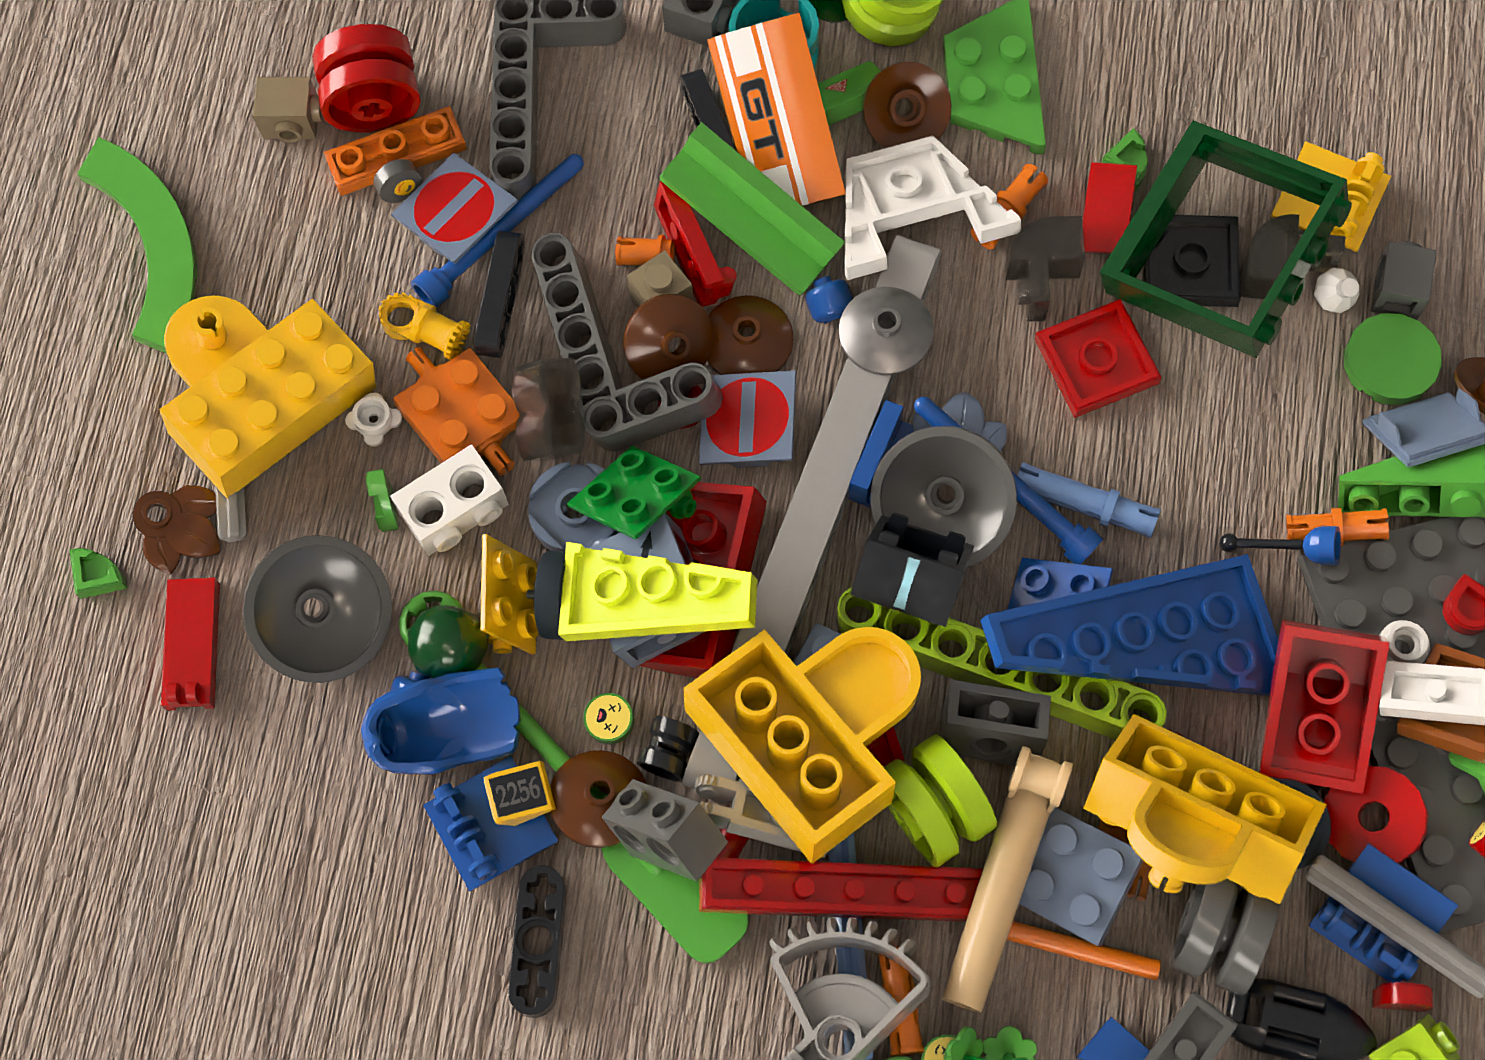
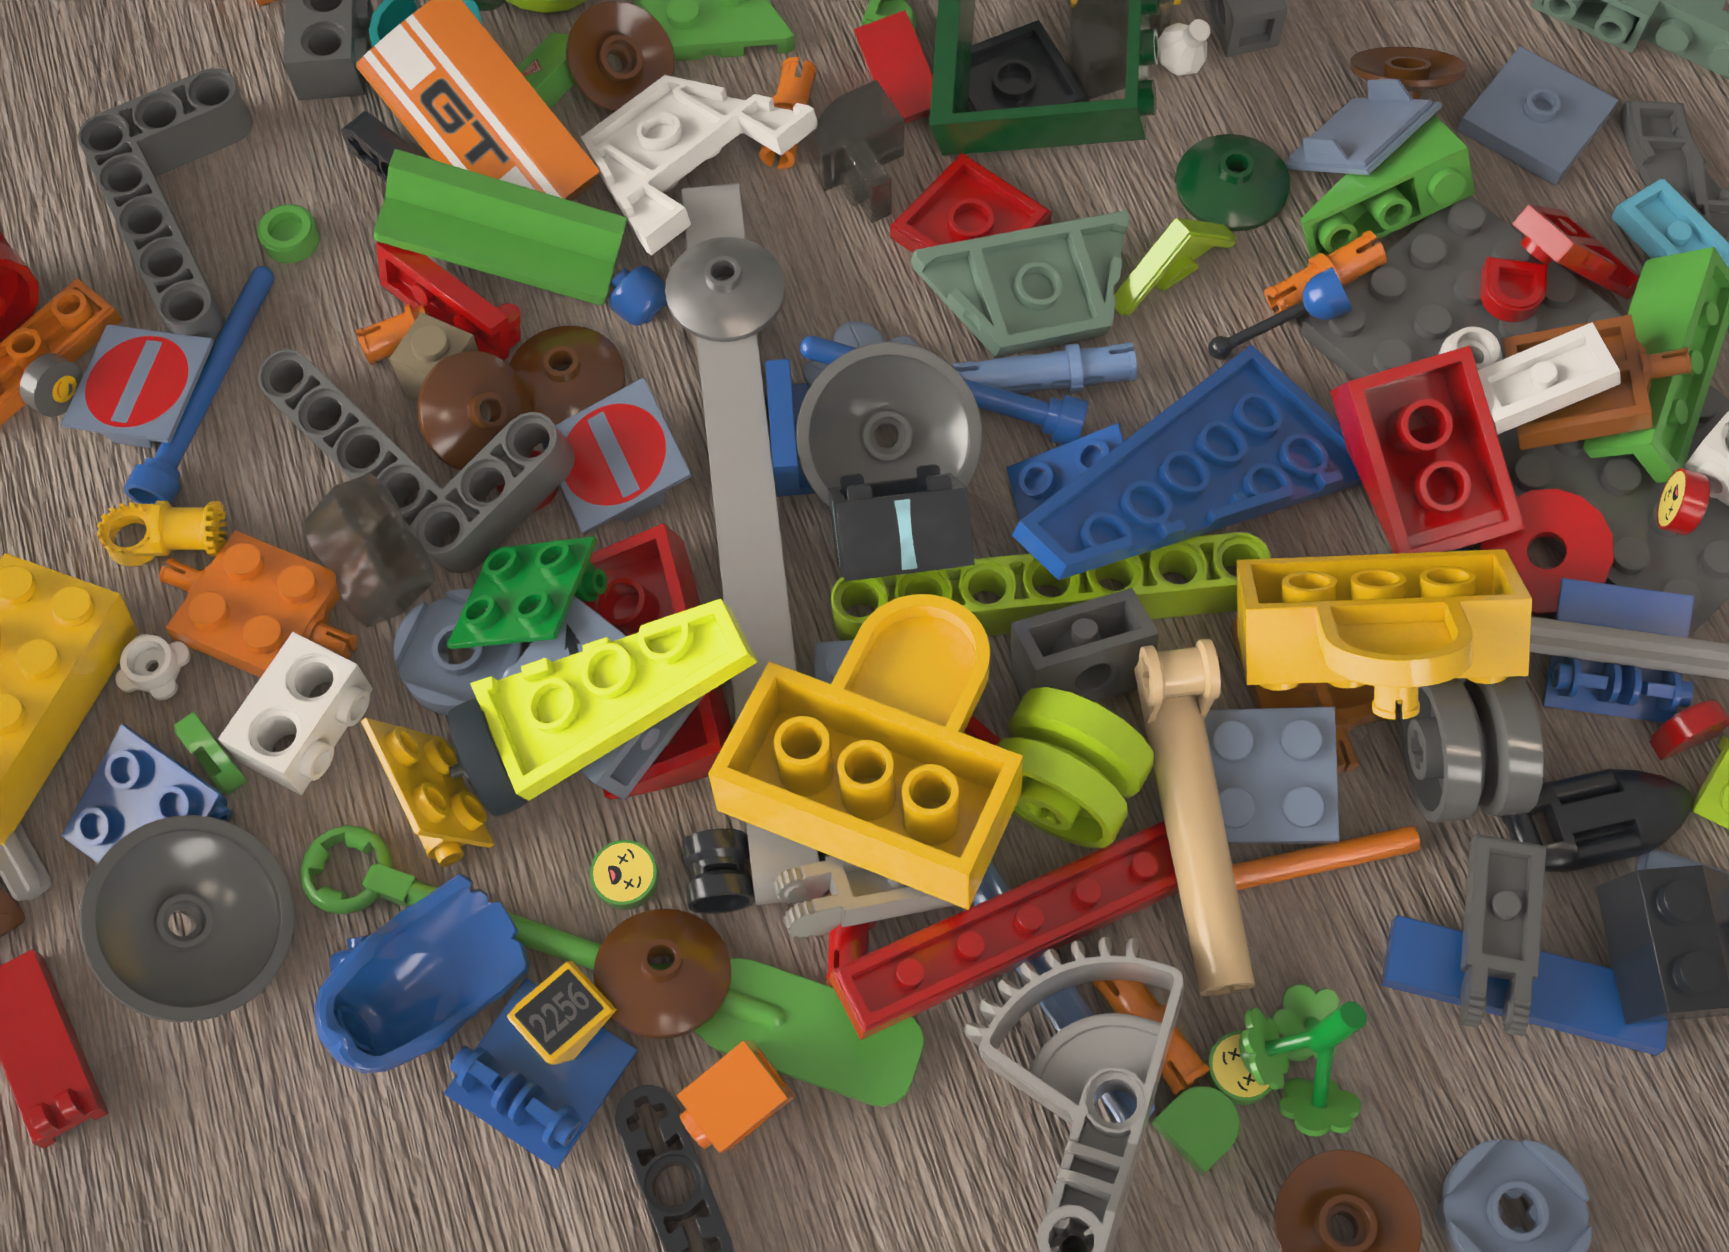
camera: 30 degrees left, 5 degrees down
(324, 506) = (135, 788): none -> hinge
(446, 641) = (375, 878): dark green hair -> none
(499, 294) = (242, 455): black beam -> none
(601, 905) = (733, 1098): none -> orange brick
(608, 136) = (288, 233): none -> bright green tile
(665, 829) = (769, 960): dark grey brick -> none
(1114, 429) = (1031, 283): none -> sand green wing
(1229, 458) = (1171, 260): none -> lime tile
(1304, 431) = (1227, 197): none -> dark green dish
(1392, 358) = (1278, 90): bright green tile -> none

